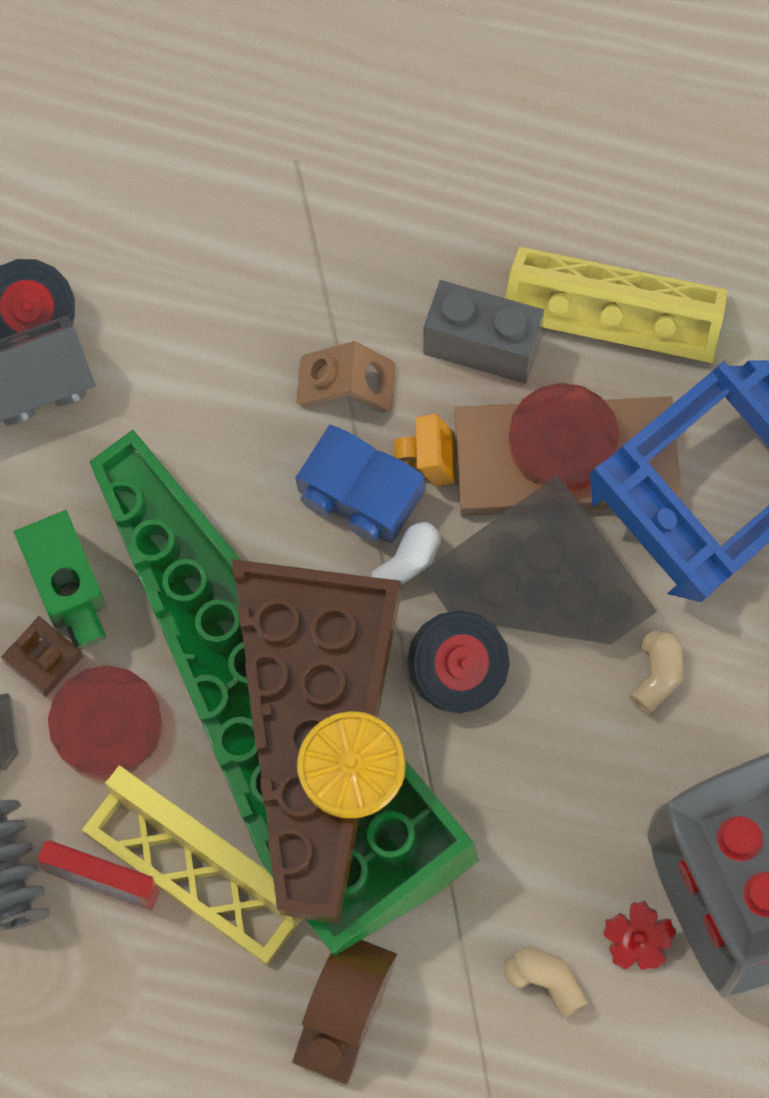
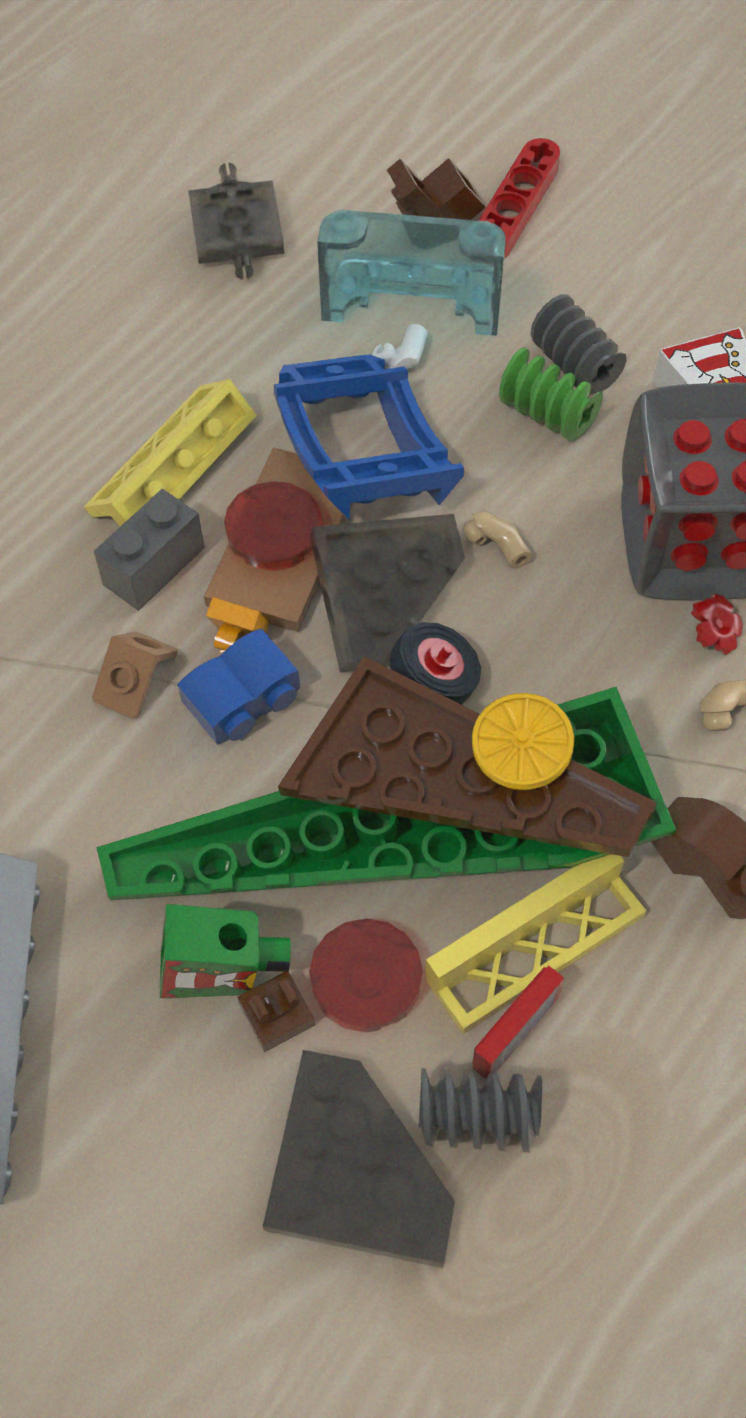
camera: 70 degrees left, 10 degrees down
(413, 554) = (322, 669): white arm -> none

